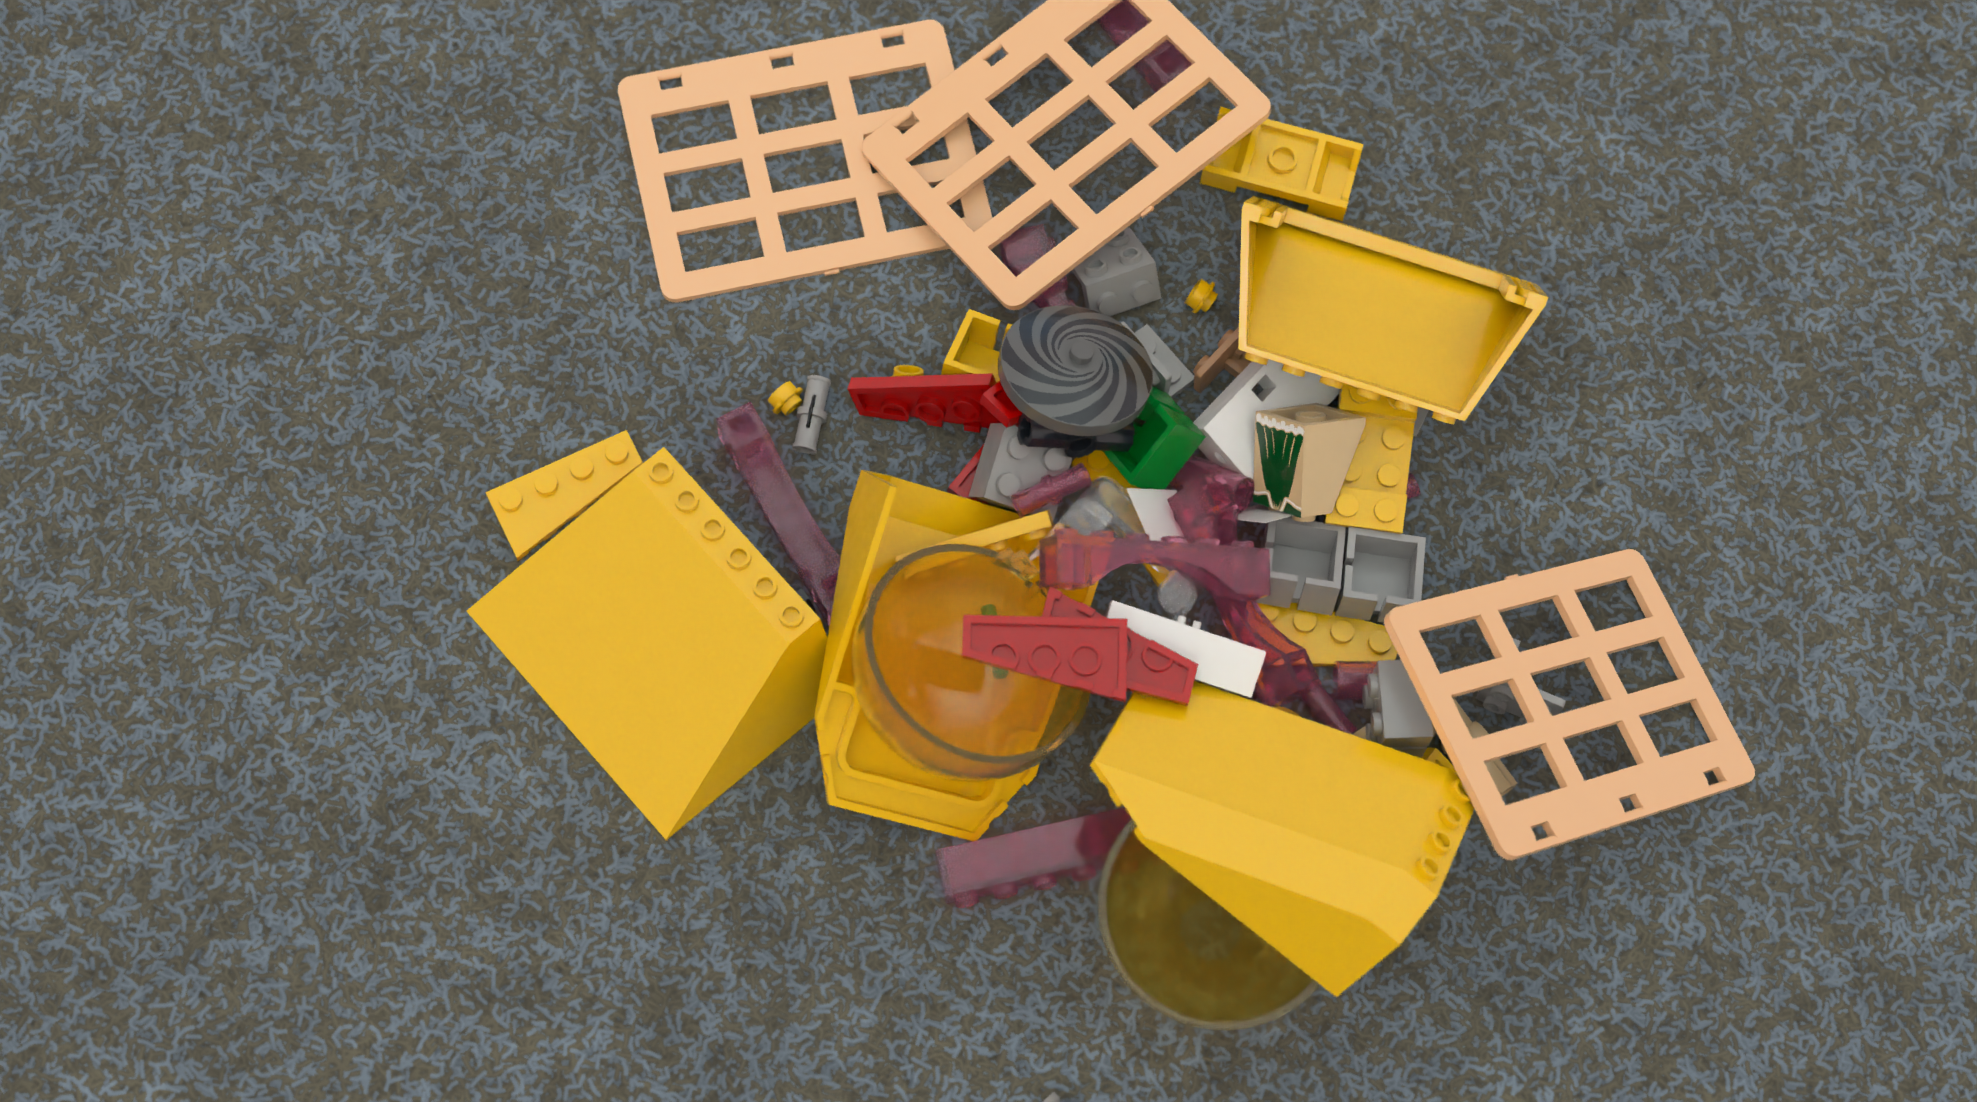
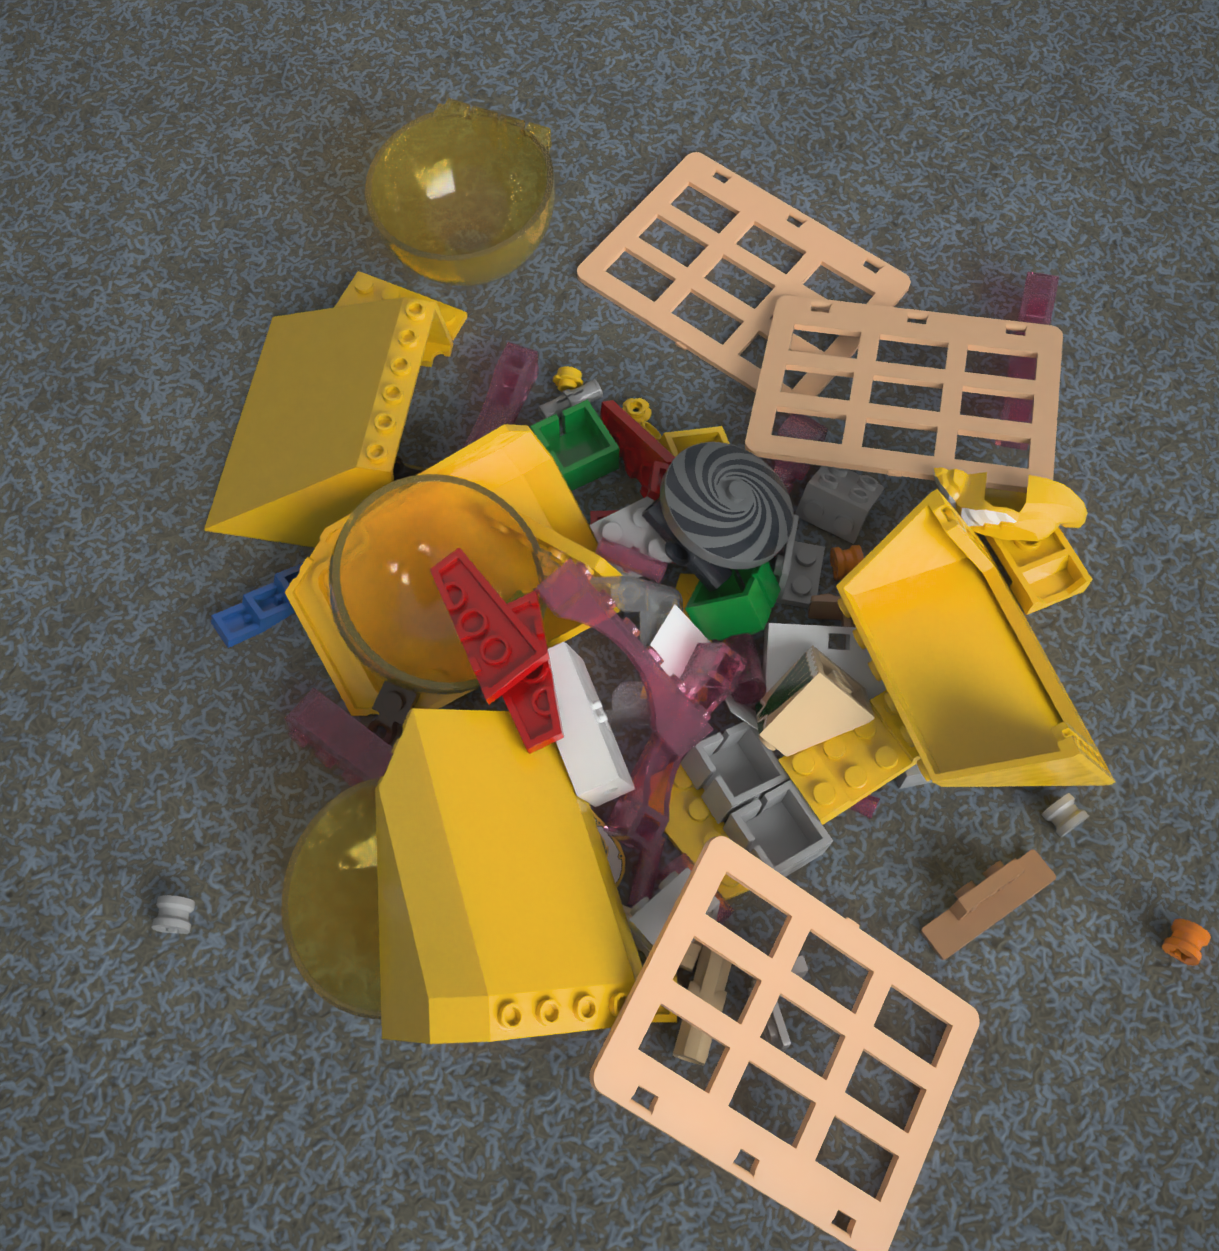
camera: 55 degrees right, 5 degrees down
(533, 327) = (462, 193): none -> clear yellow windscreen
(804, 824) = (258, 611): none -> blue slope
(868, 357) = (640, 404): none -> yellow plate
(871, 440) = (584, 449): none -> green piece
(1006, 798) = (393, 706): none -> dark brown plate
(1179, 318) = (845, 560): none -> orange wheel
(1258, 155) = (1011, 513): none -> yellow animal
(1537, 347) = (1065, 815): none -> light grey wheel
(1557, 467) = (987, 903): none -> medium nougat bracket
(1702, 350) = (1186, 941): none -> orange wheel

